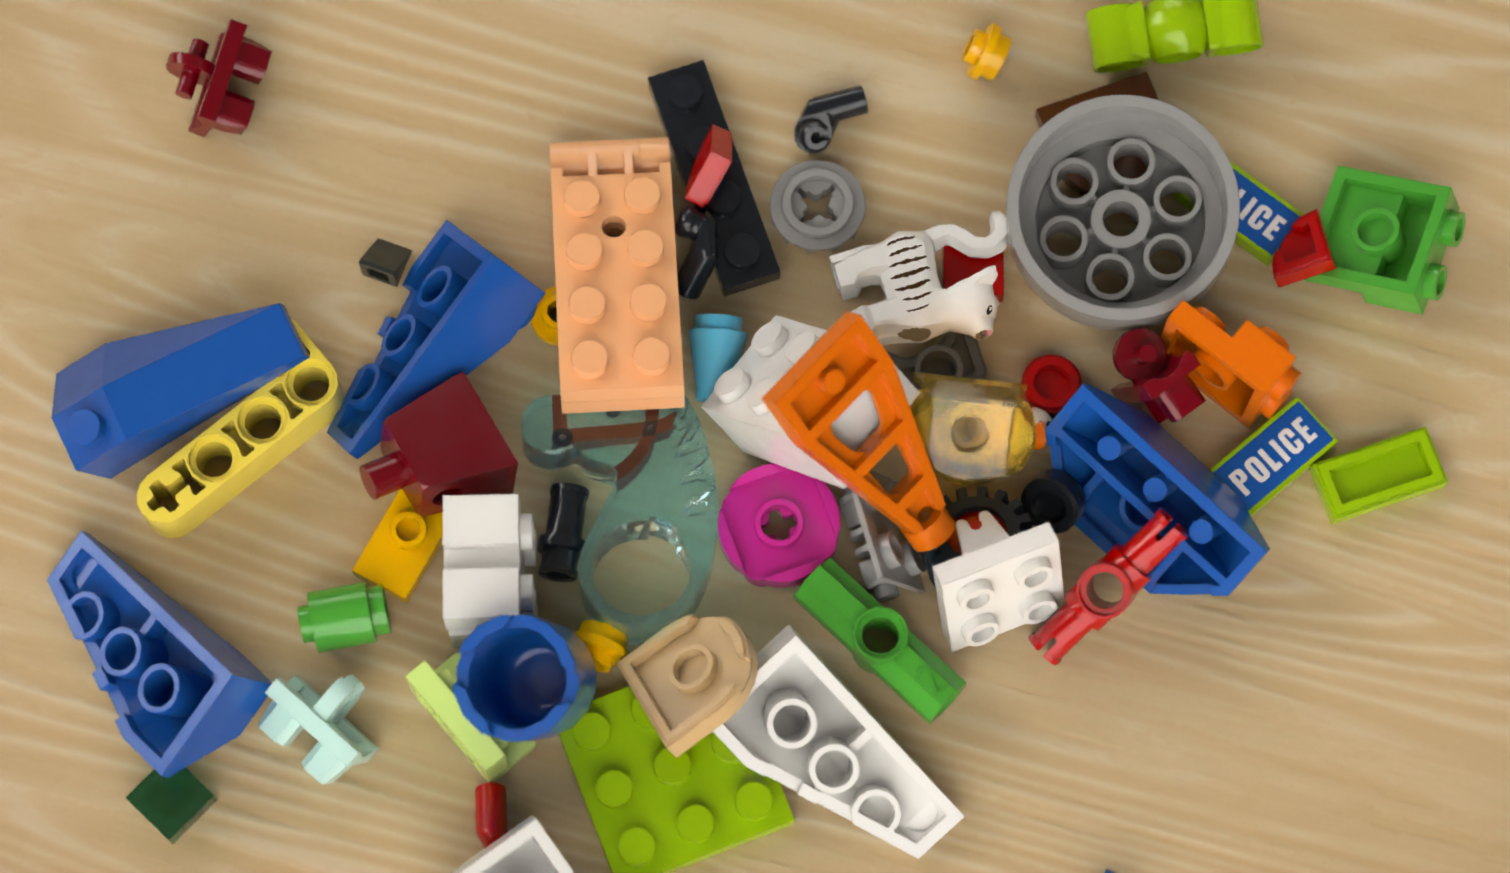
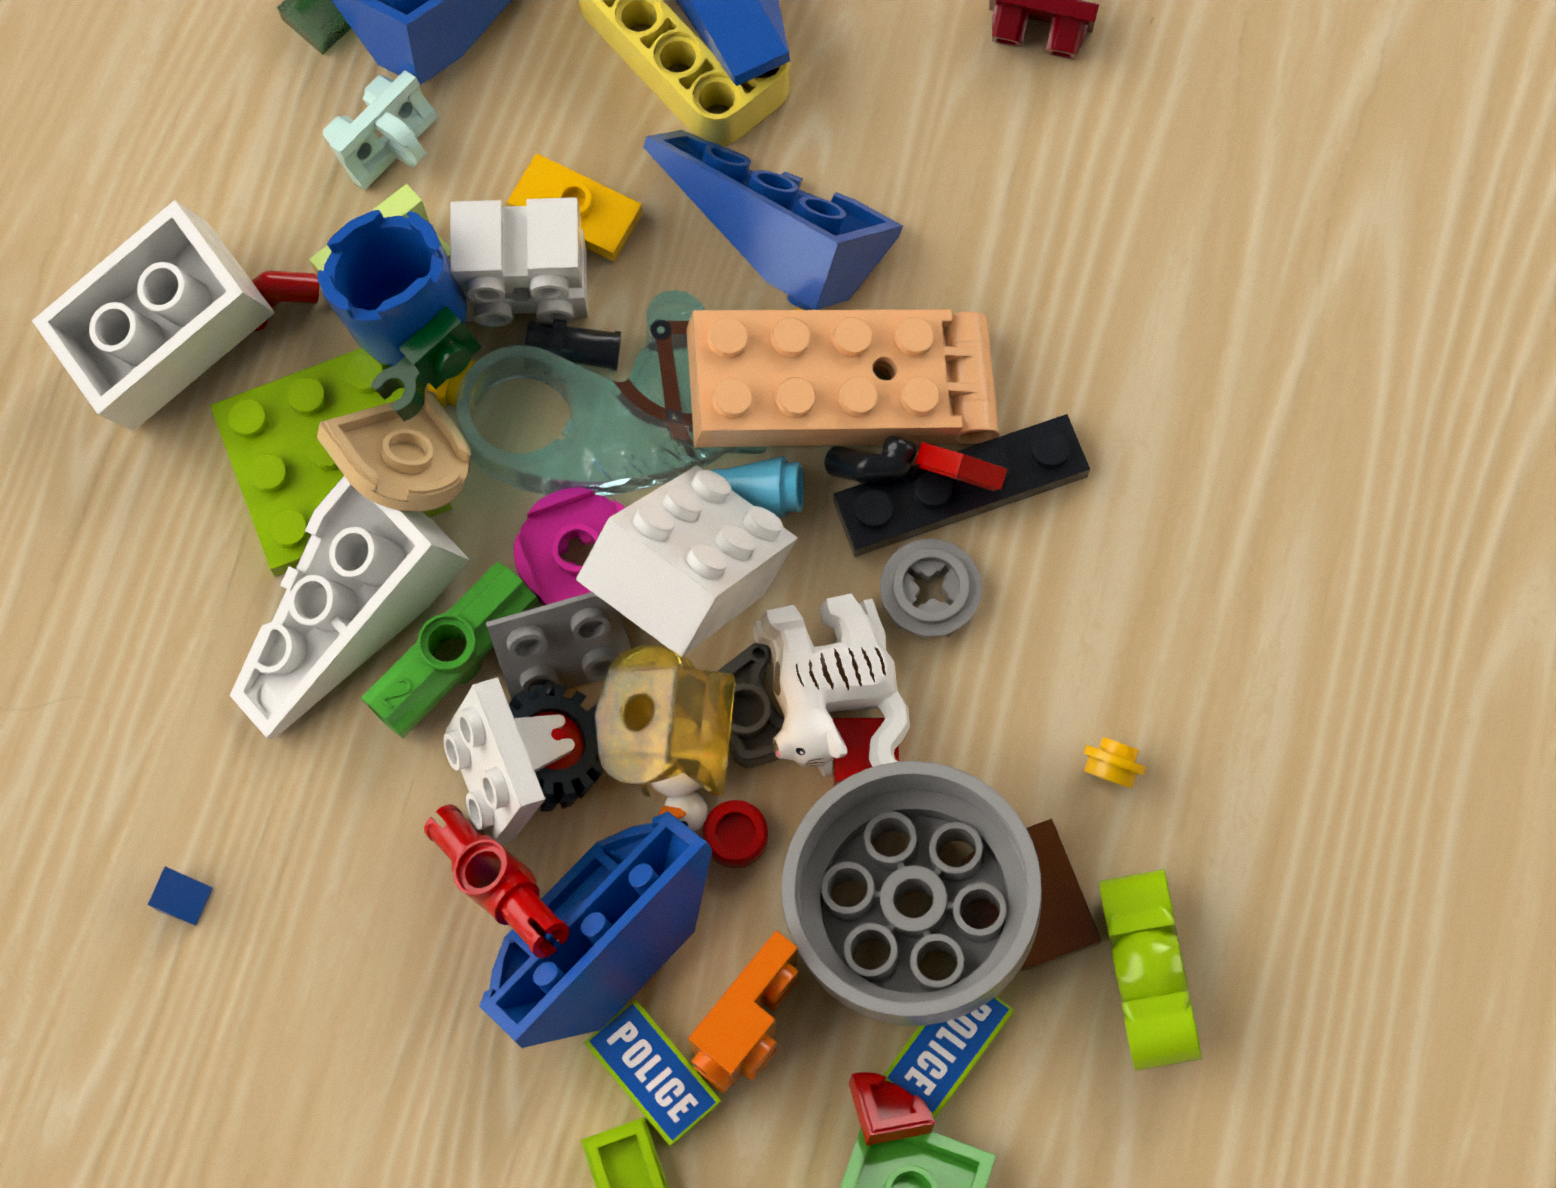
camera: 90 degrees right, 0 degrees up
(344, 616) = (488, 147): bright green brick -> none
(385, 262) = (860, 174): pearl dark grey piece -> none
(441, 449) = (648, 219): dark red torso -> none
(594, 637) = (432, 357): none -> dark green plate
(822, 115) = (1032, 593): black arm -> none
(822, 388) = (663, 536): orange plate -> none
(1055, 499) = (599, 829): black tile -> none
(1158, 378) = (729, 932): dark red hips -> none

